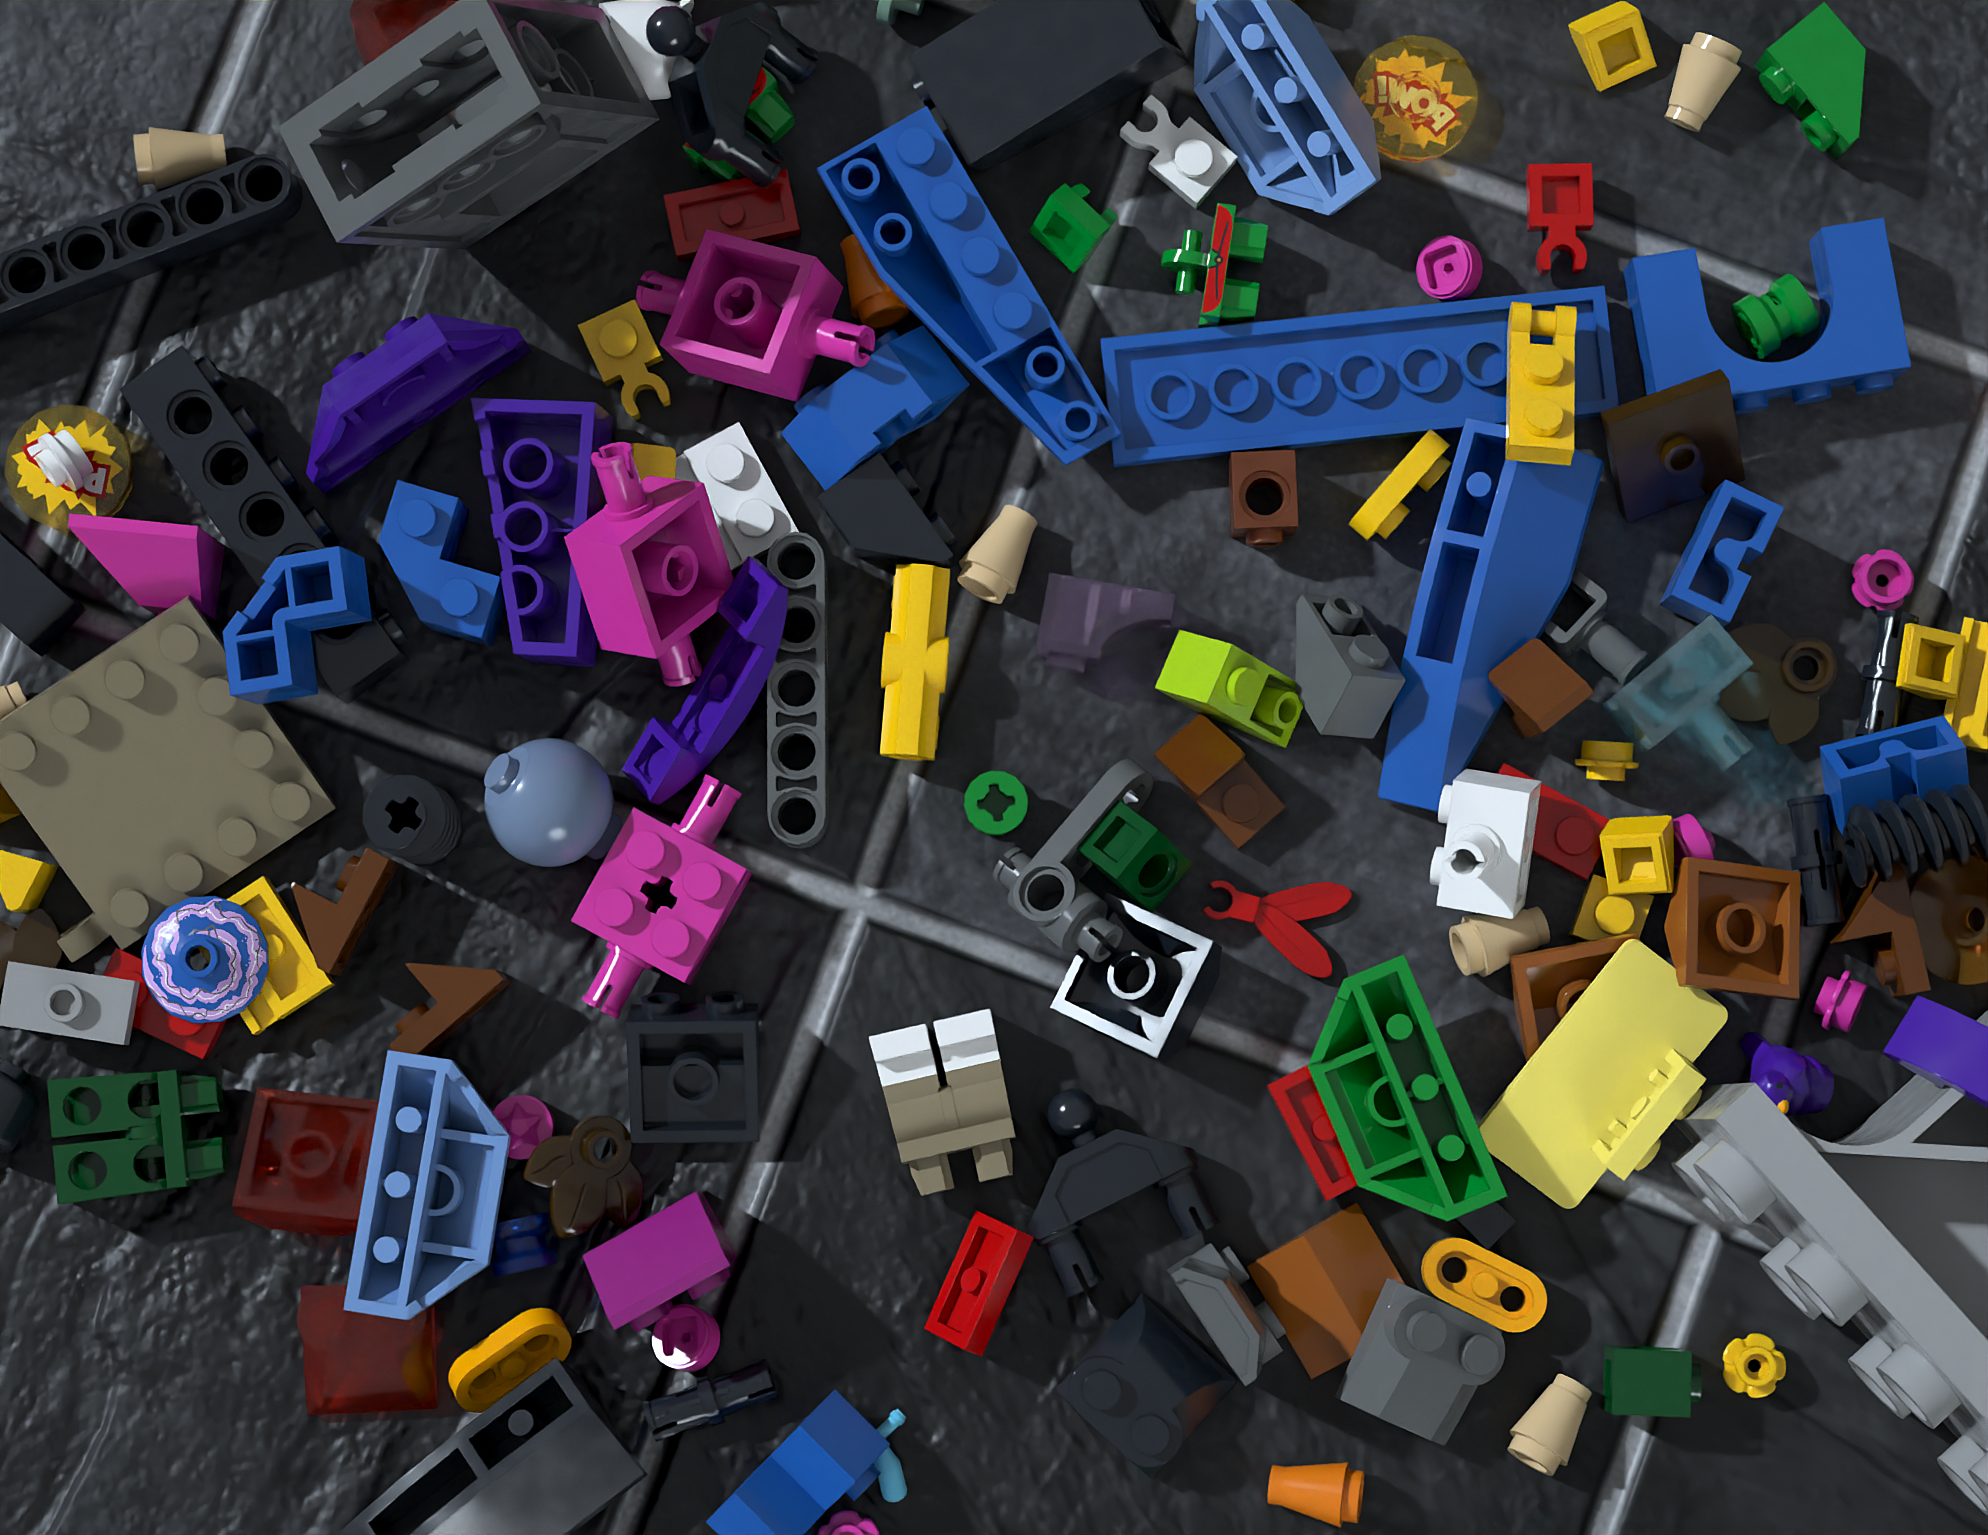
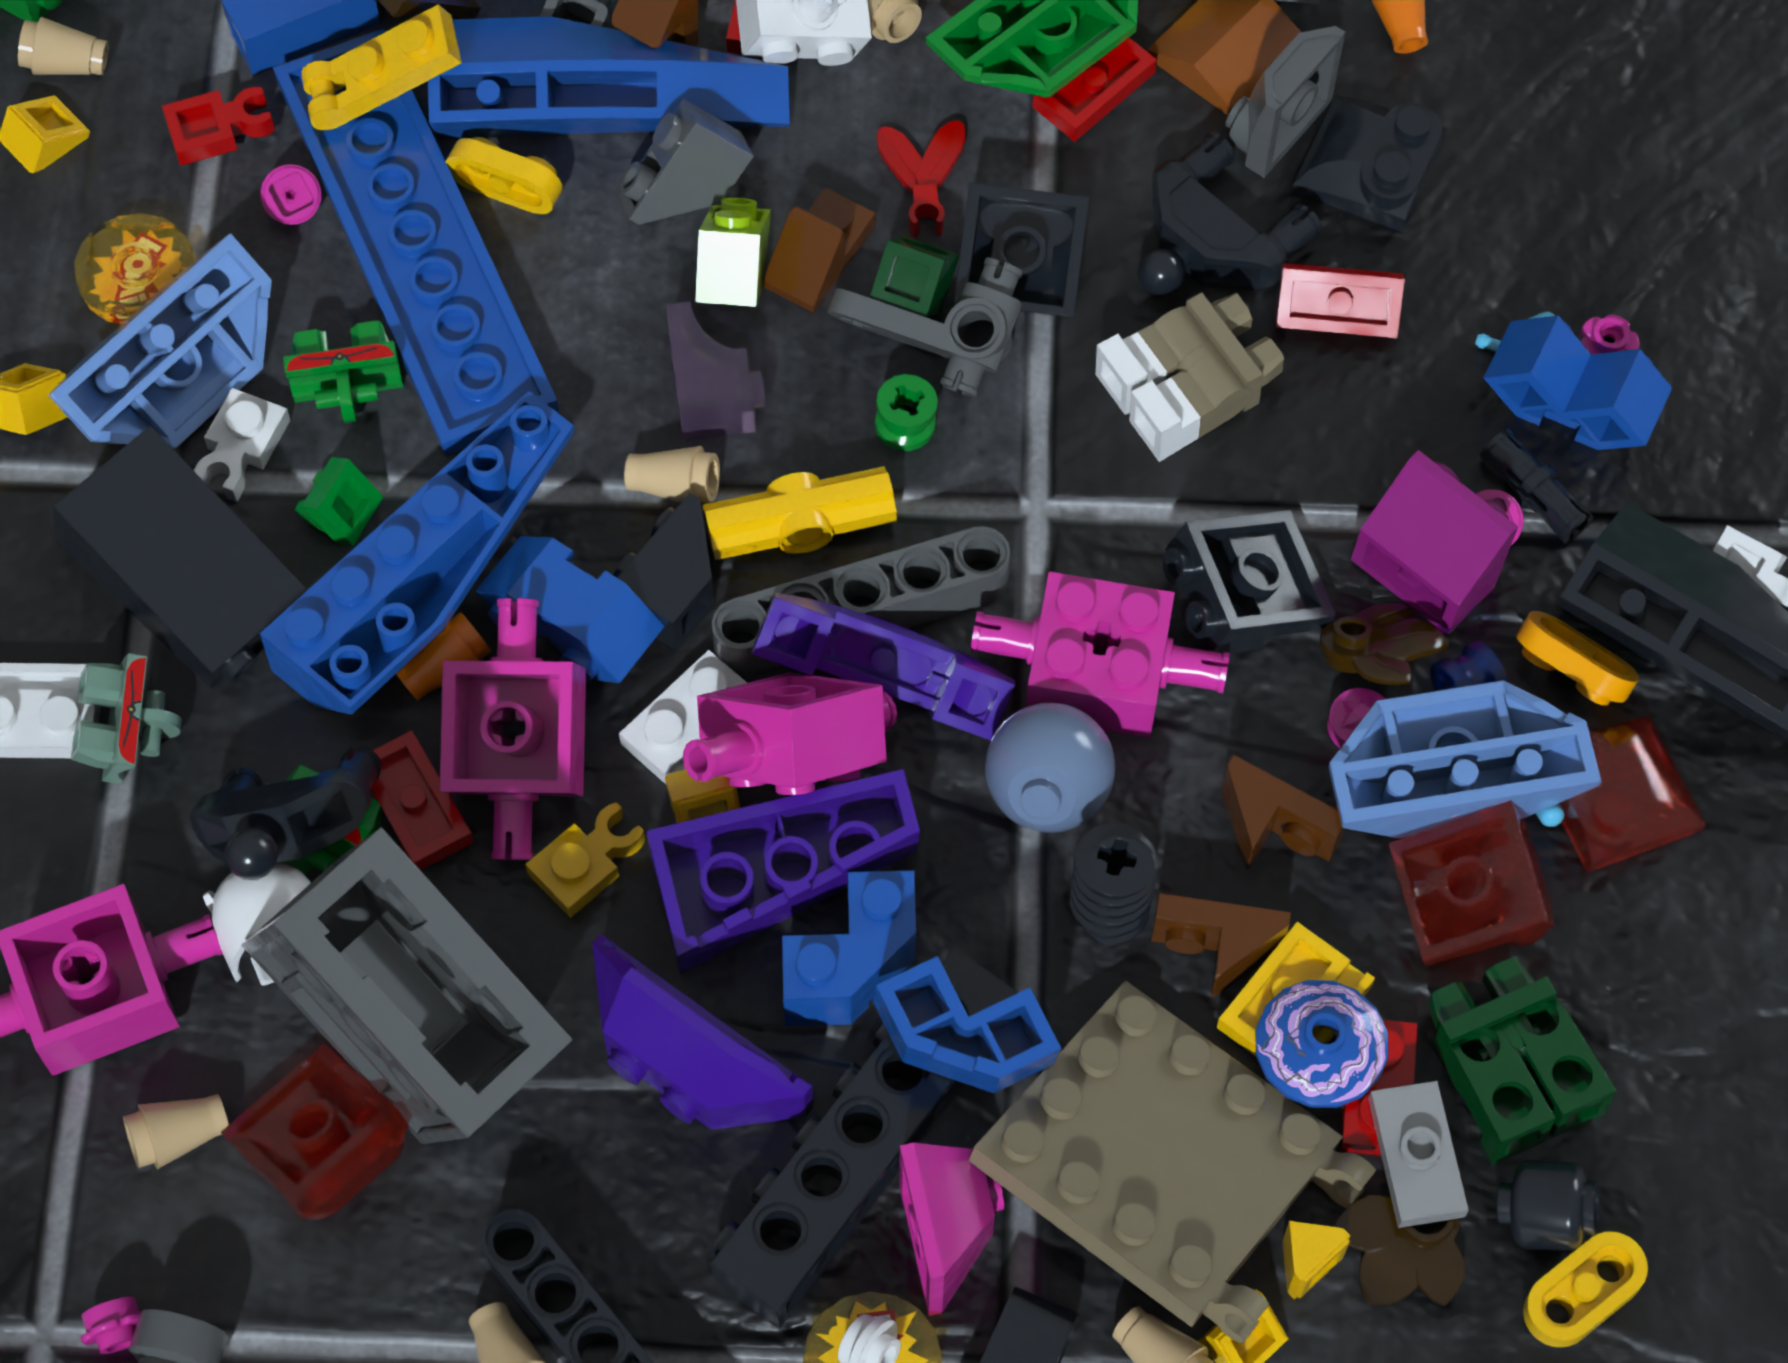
camera: 115 degrees left, 20 degrees down
(1267, 469) = (543, 298): copper brick -> none

